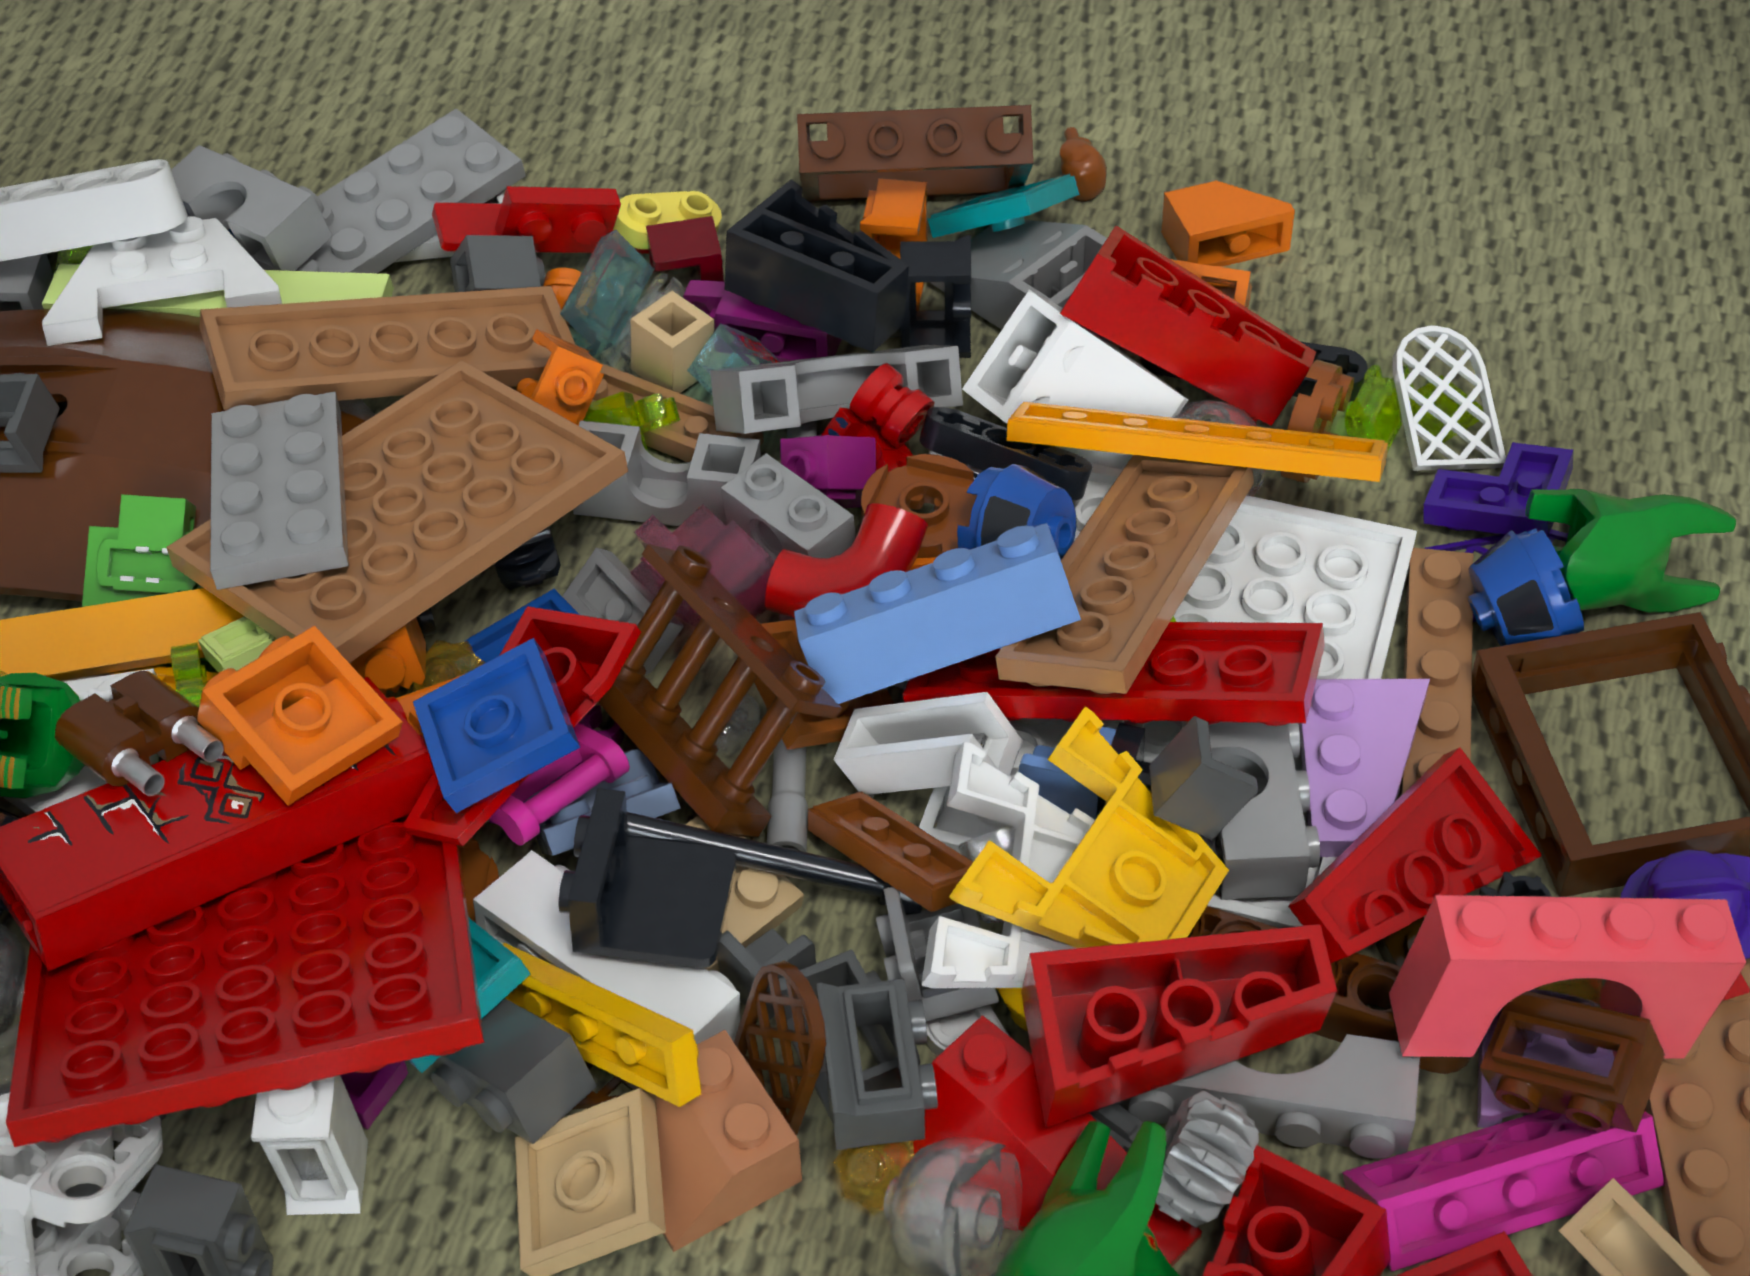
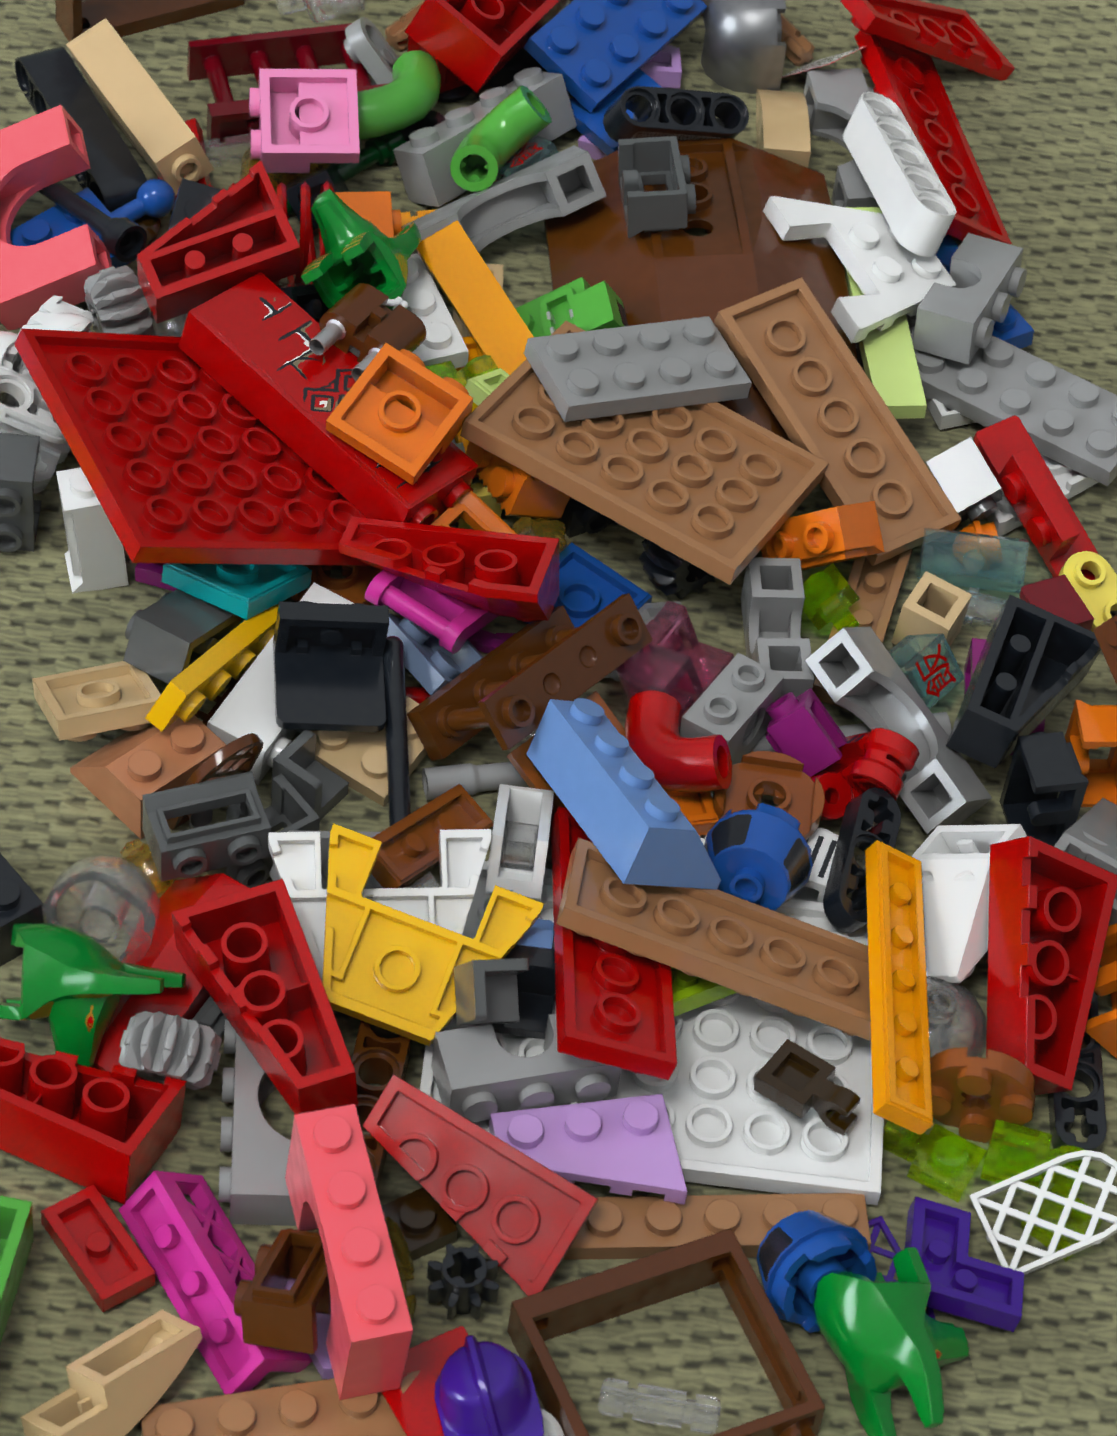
camera: 70 degrees right, 0 degrees up
(495, 725) = (428, 533): blue plate -> none
(1295, 559) = (803, 1081): none -> dark brown plate
(1363, 497) = (938, 1159): none -> clear neon green plate
(1712, 745) = (659, 1405): none -> clear axle

